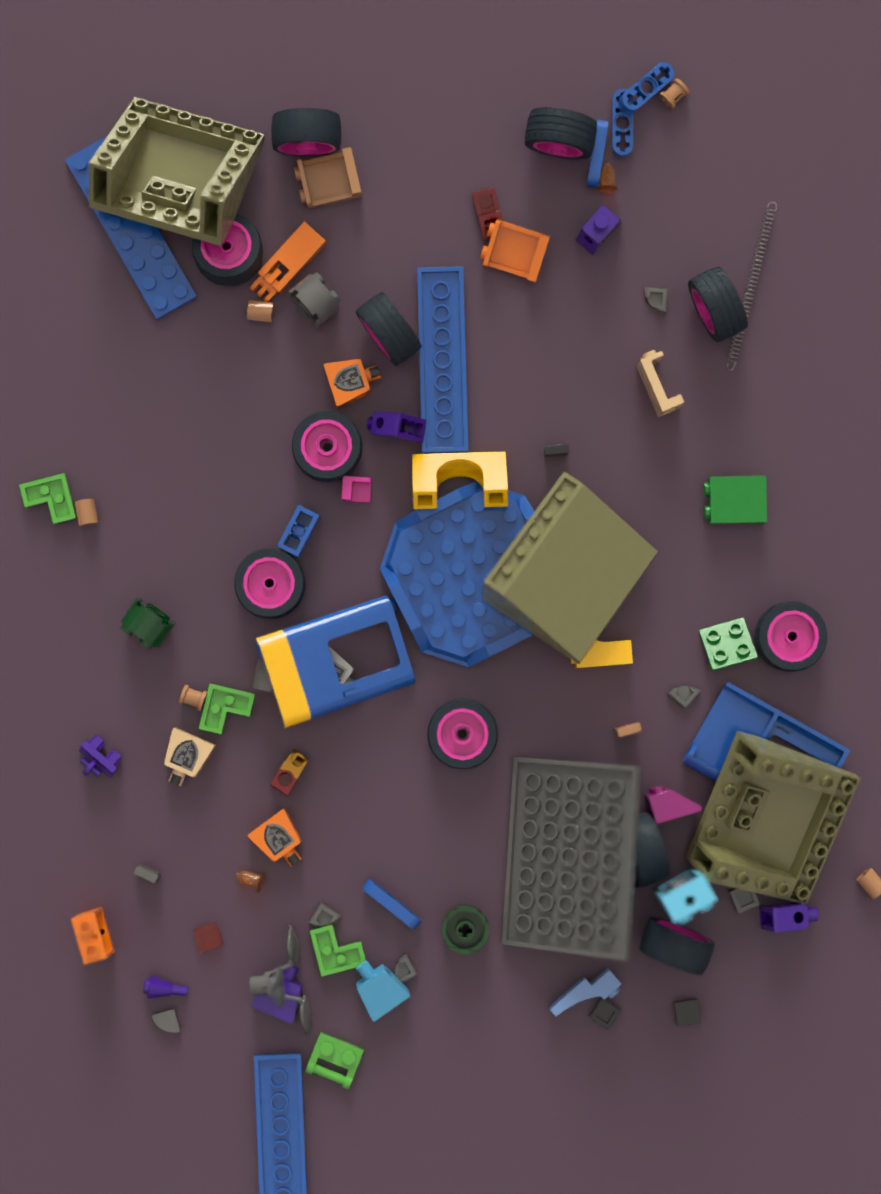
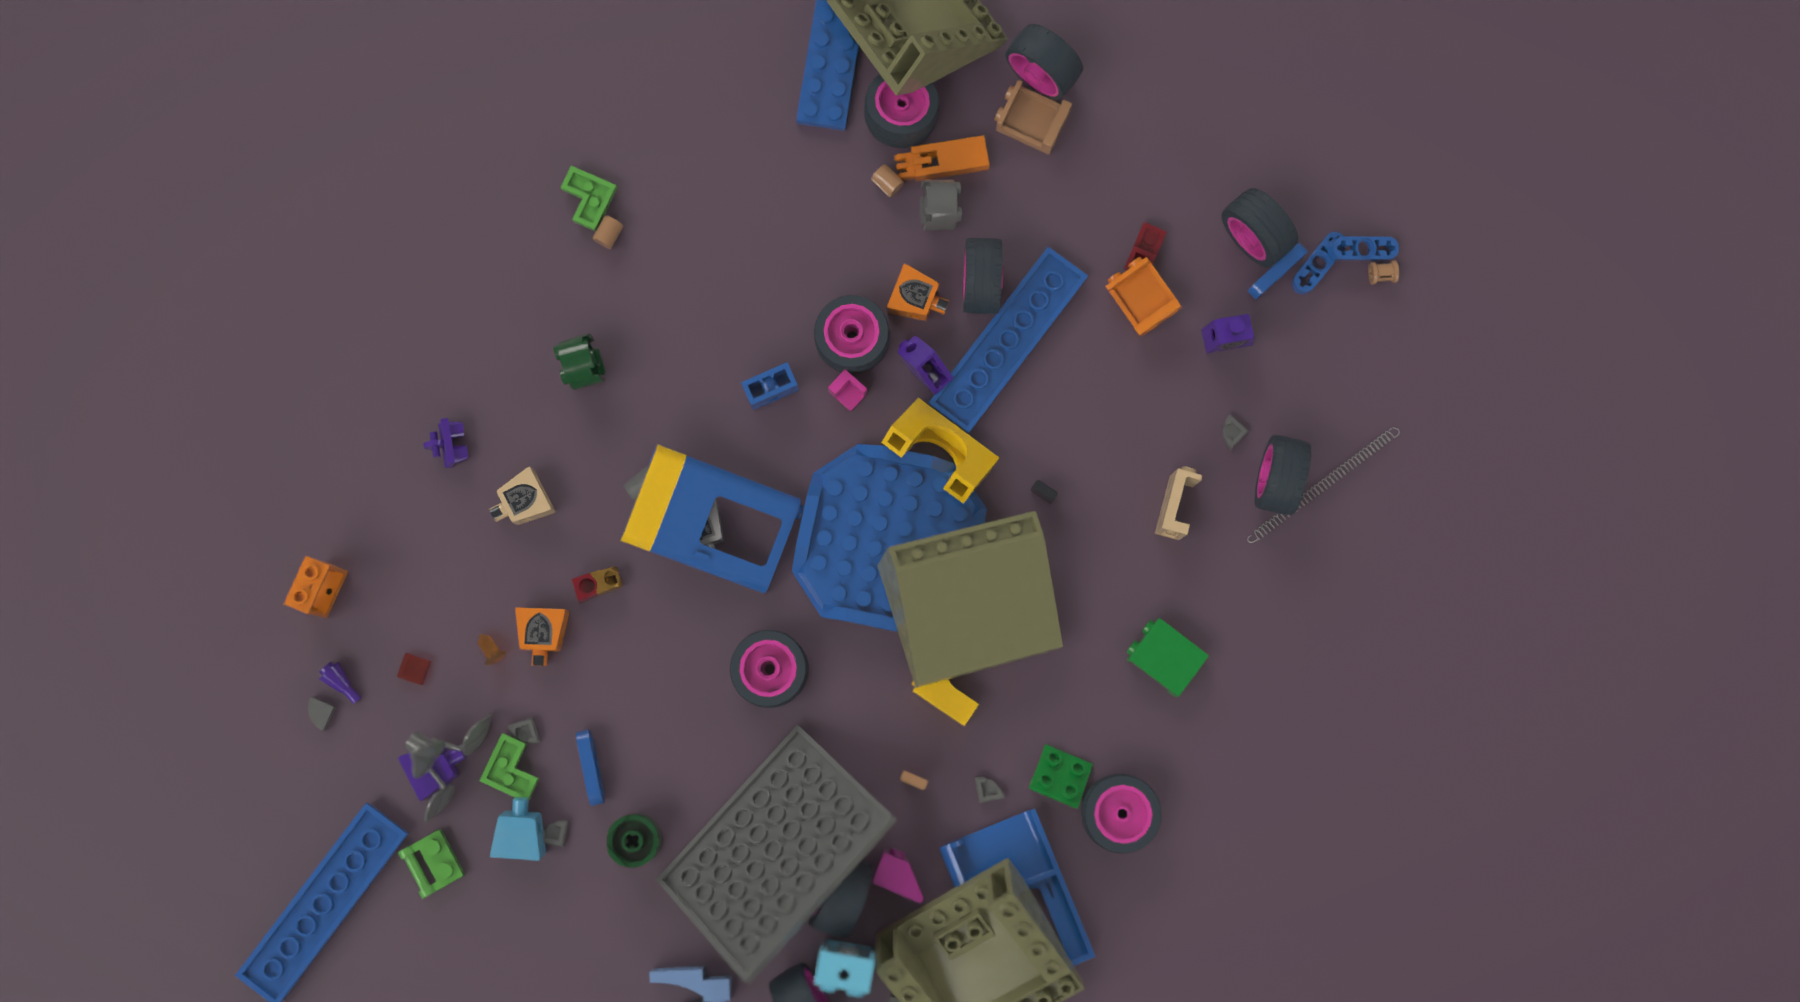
camera: 40 degrees right, 5 degrees down
(147, 873) = (407, 572): dark grey tile -> none
(193, 697) = (568, 455): medium nougat bush -> none
(224, 700) = (587, 477): bright green plate -> none
(287, 587) = (713, 429): wheel -> none
(607, 179) = (1268, 300): clear orange piece -> none

